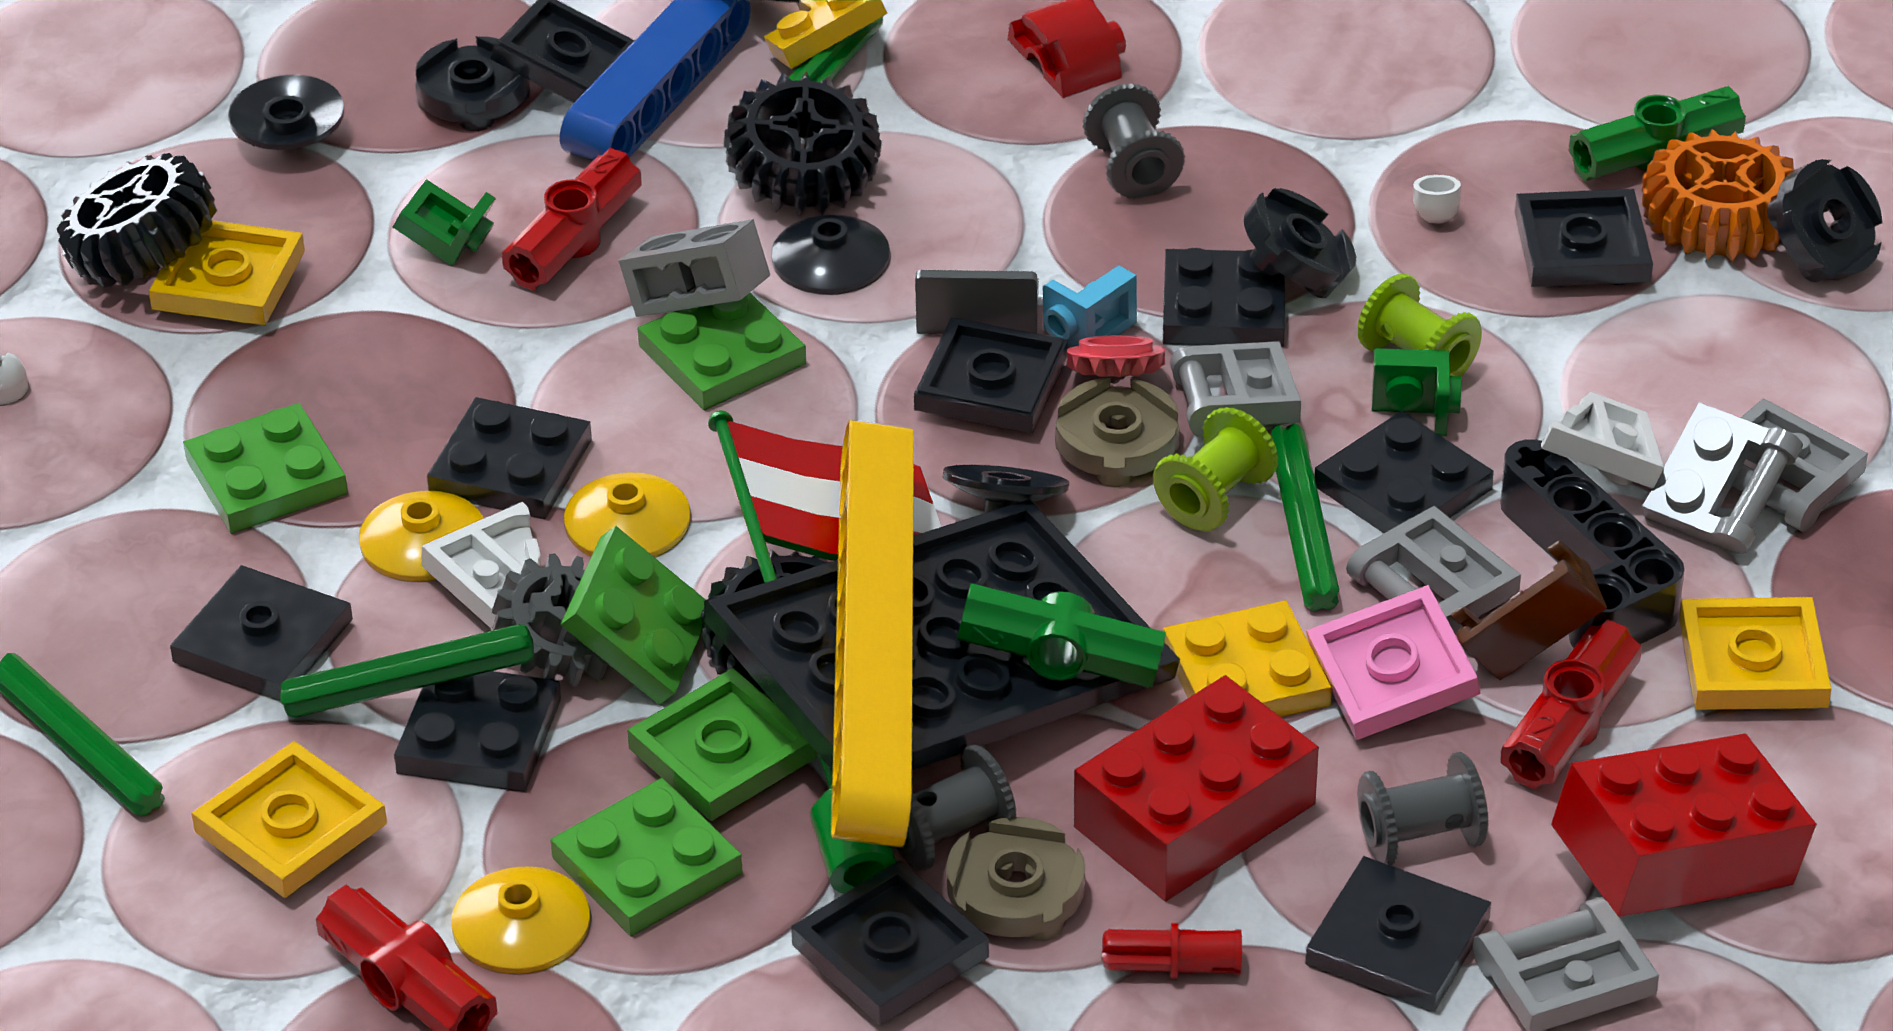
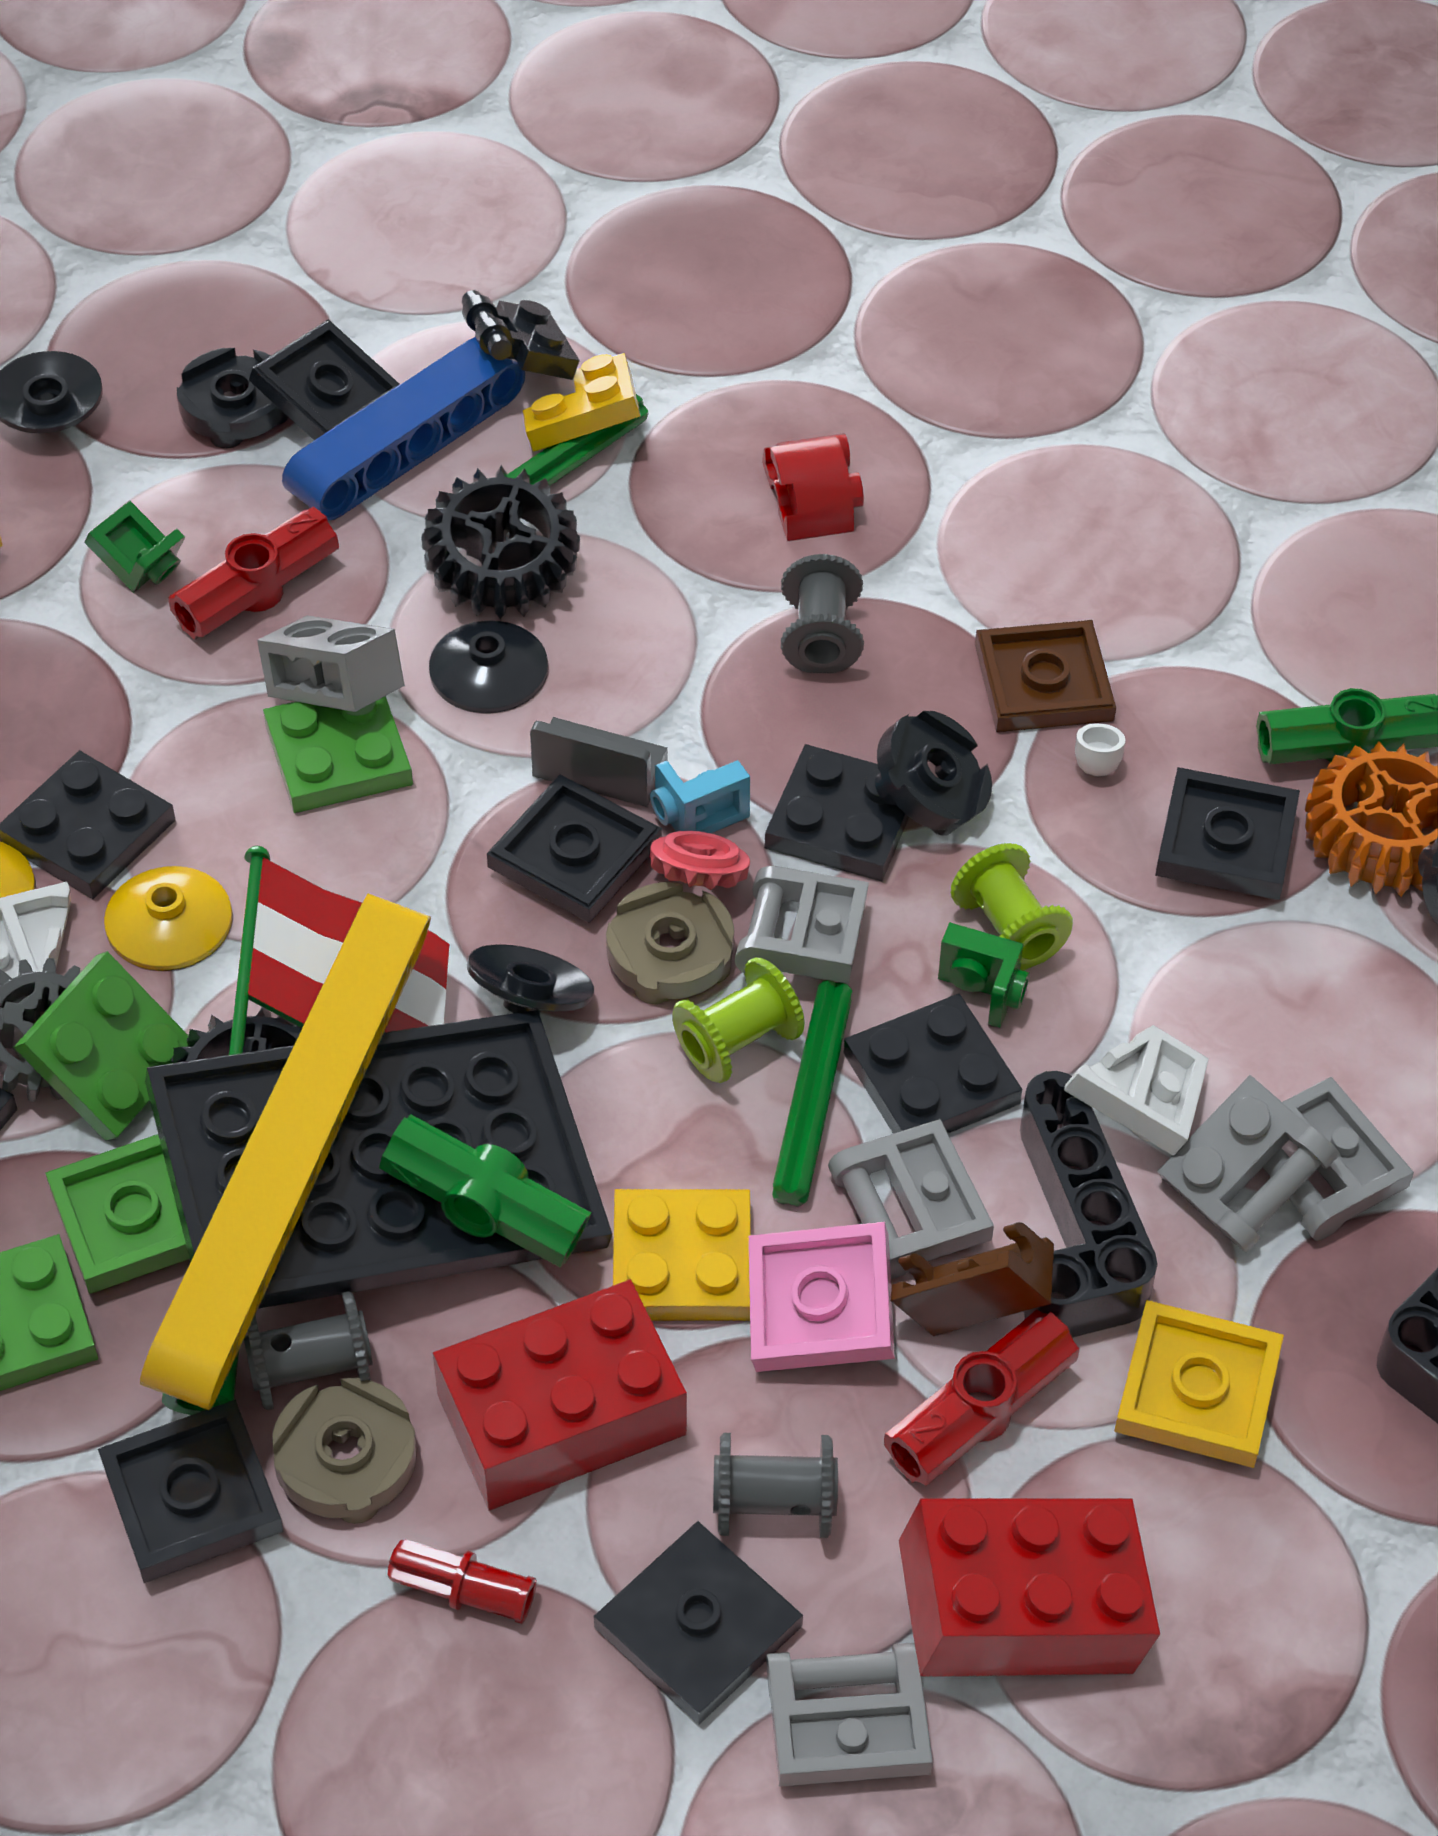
camera: 15 degrees right, 10 degrees up
(1355, 153) = (1044, 676): none -> reddish brown tile

